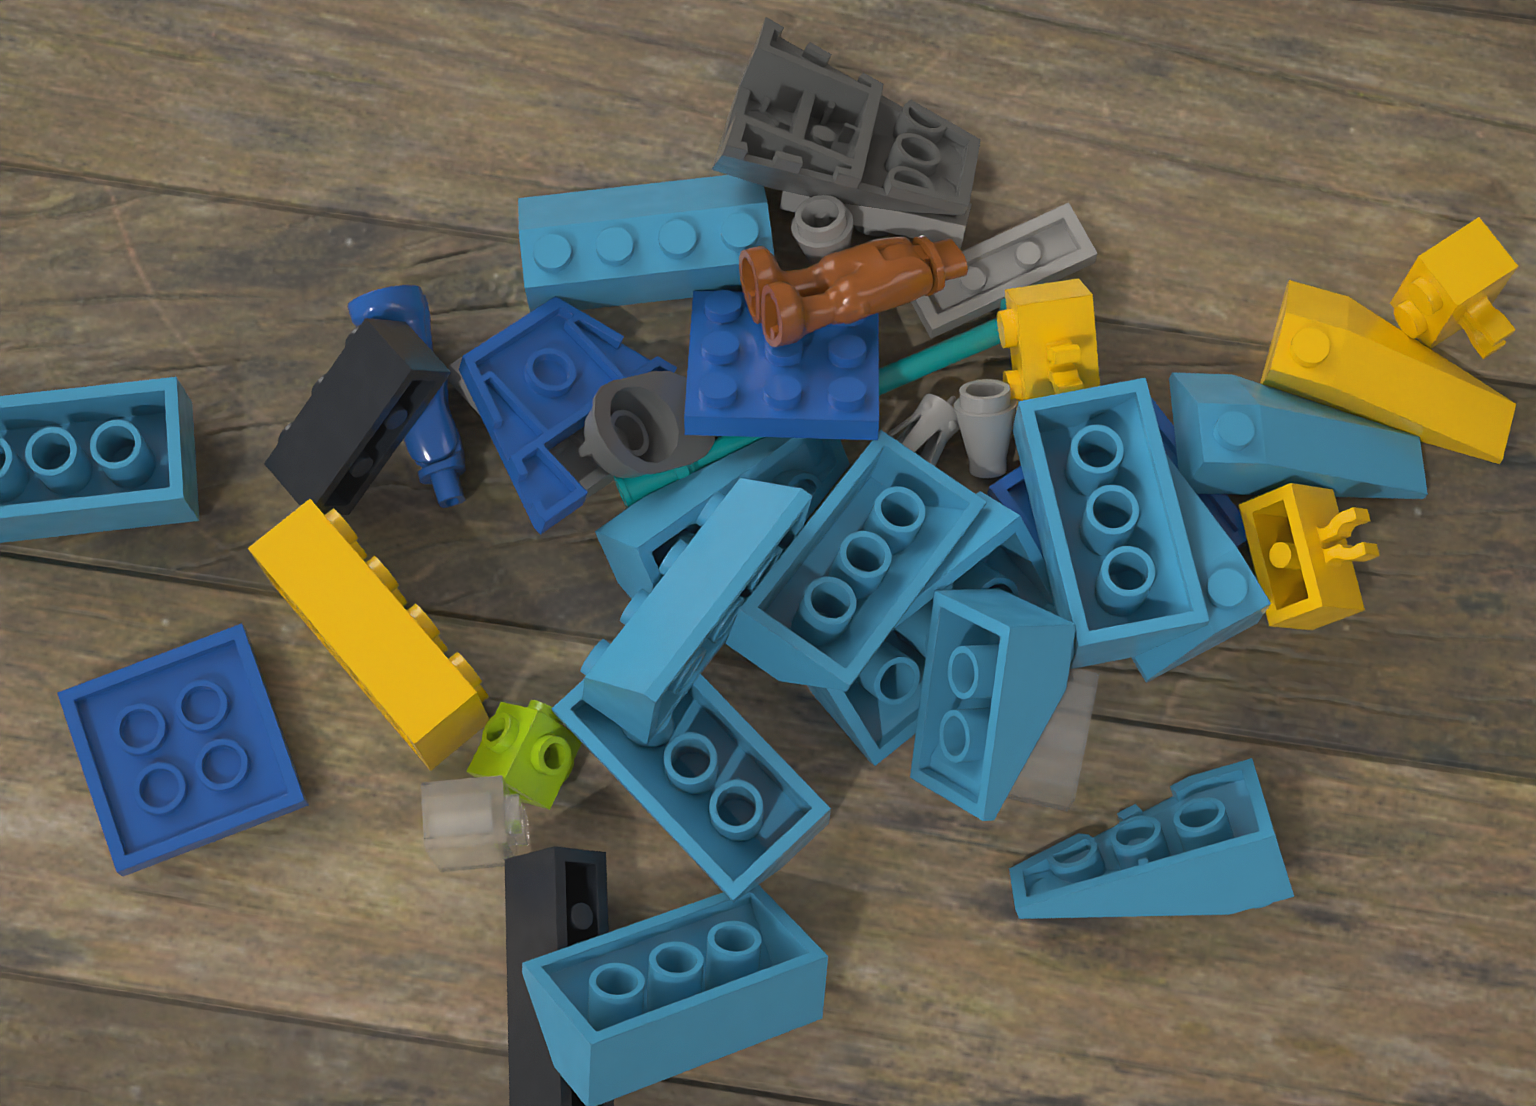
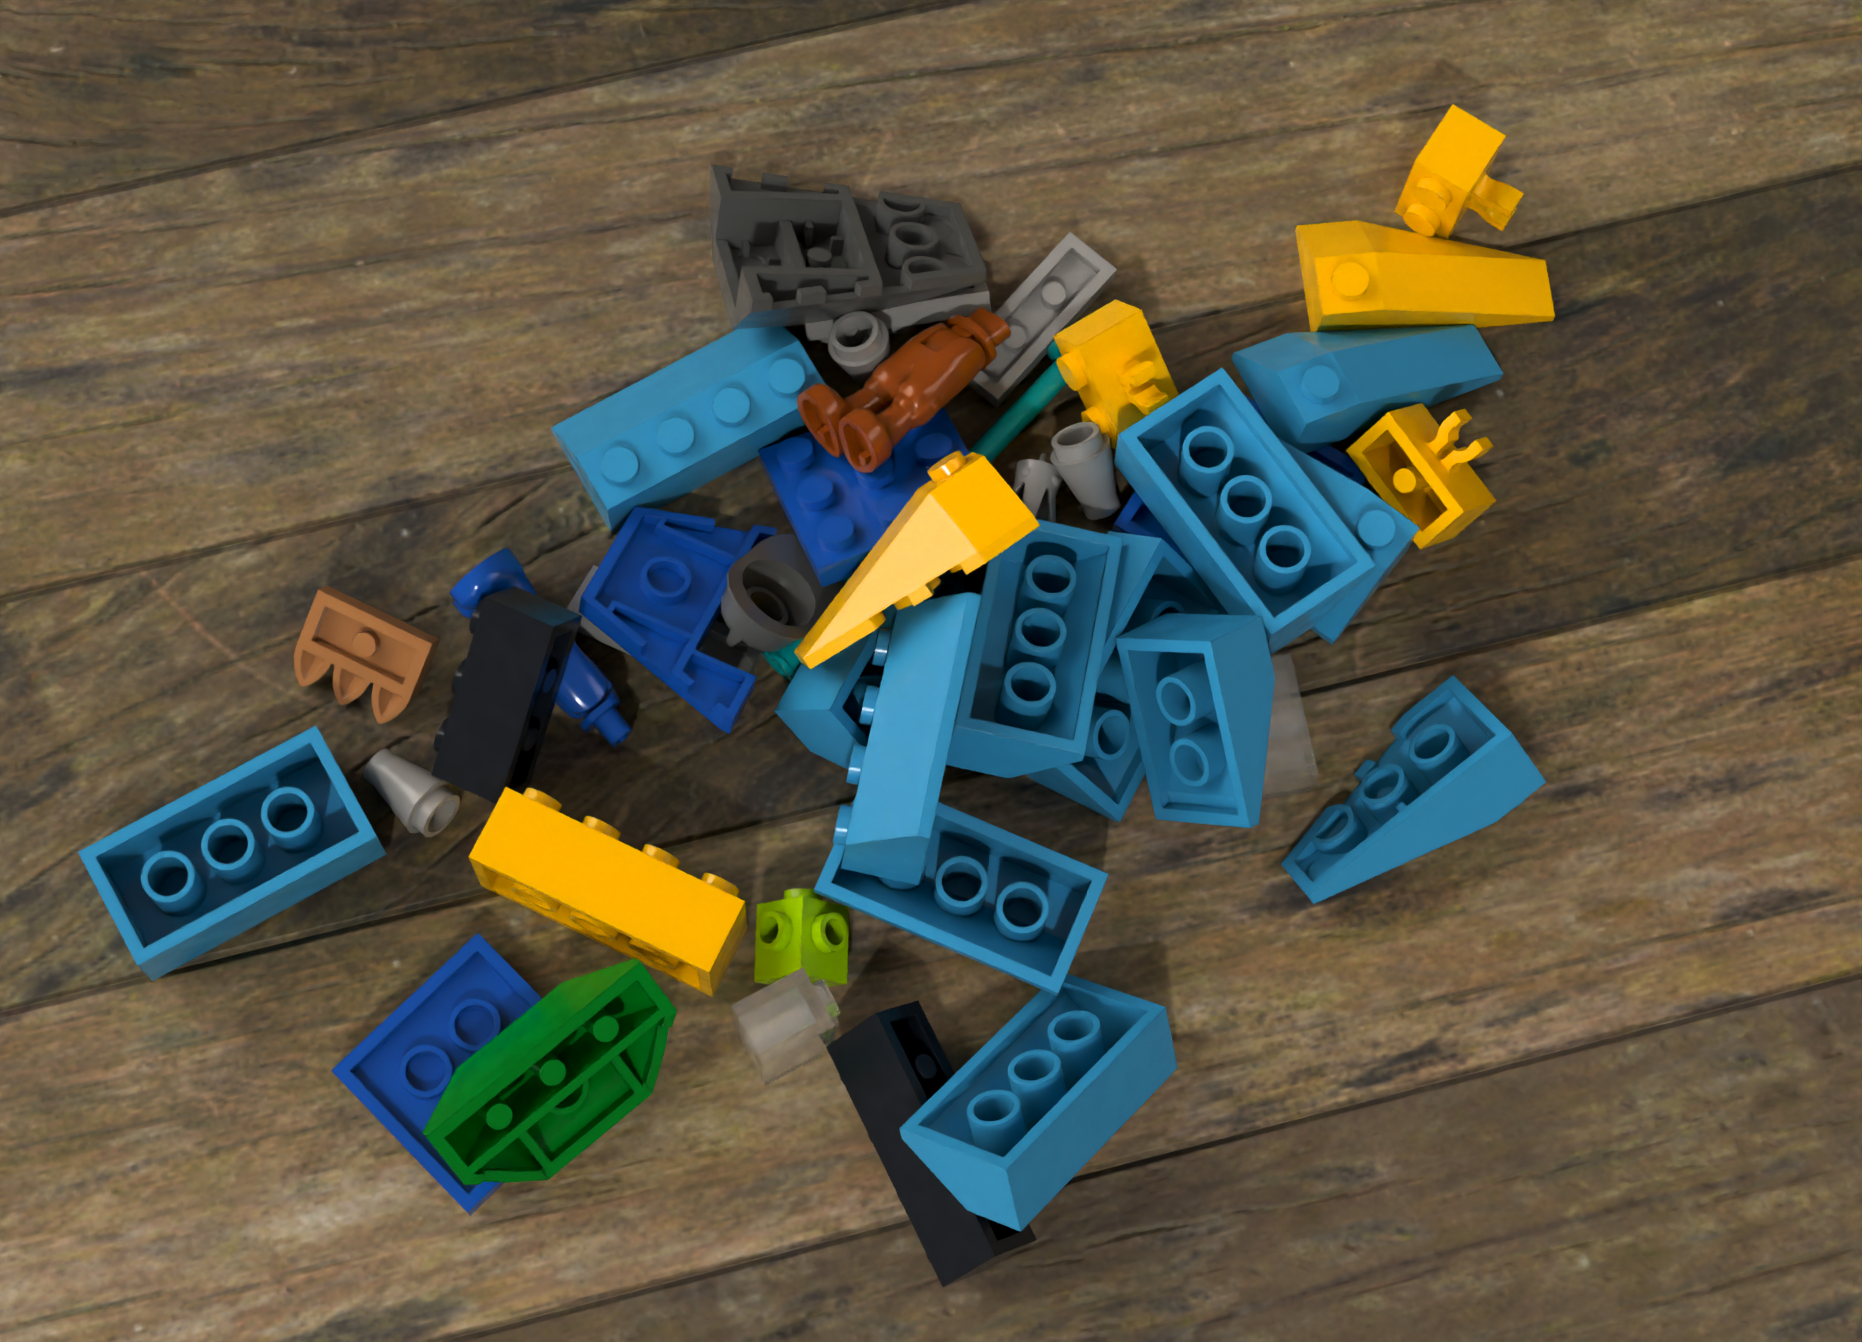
camera: 30 degrees left, 0 degrees up
(237, 784) = (554, 1078): none -> green wedge
(244, 480) = (412, 793): none -> light grey cone
(261, 330) = (365, 650): none -> medium nougat plate
(816, 422) = (948, 524): none -> yellow wedge

